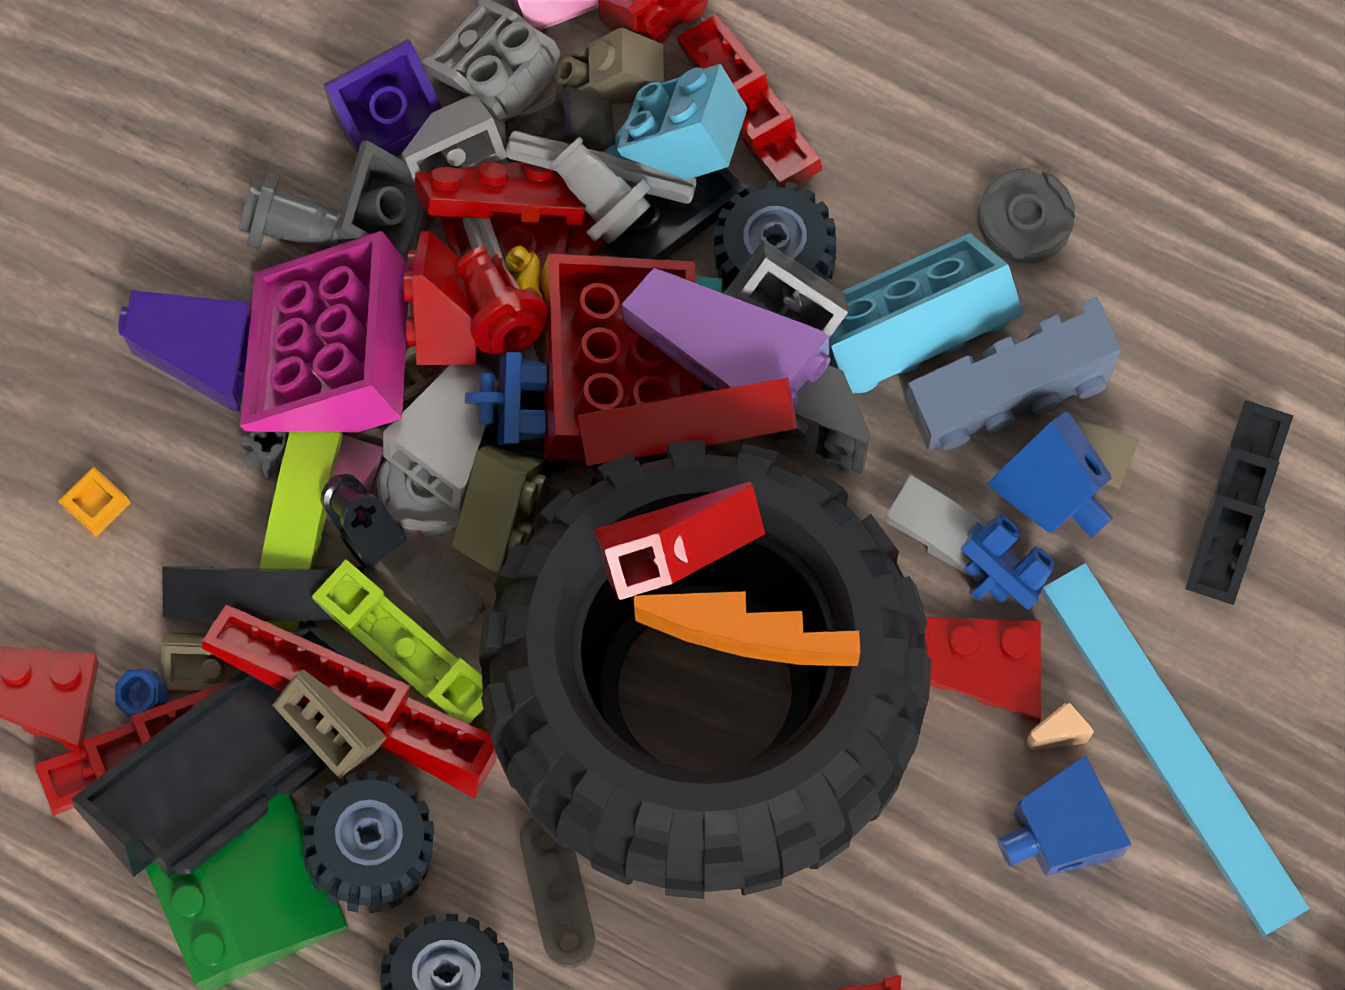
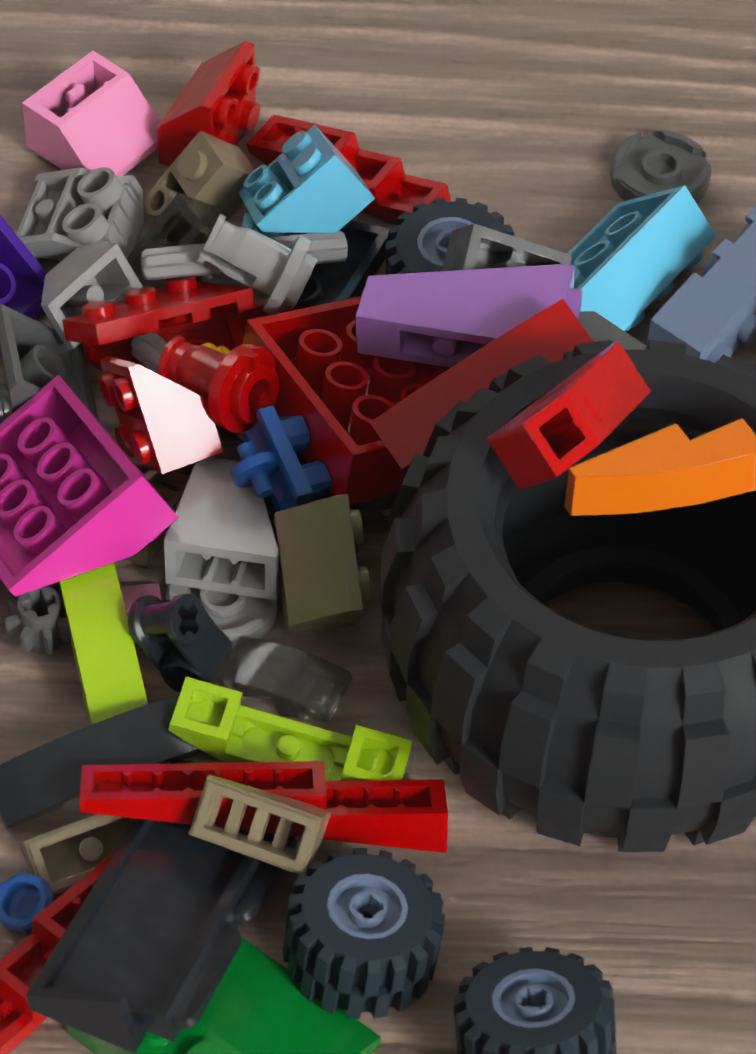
camera: 30 degrees left, 20 degrees down
(562, 916) = (578, 881): clear smoke plate -> none

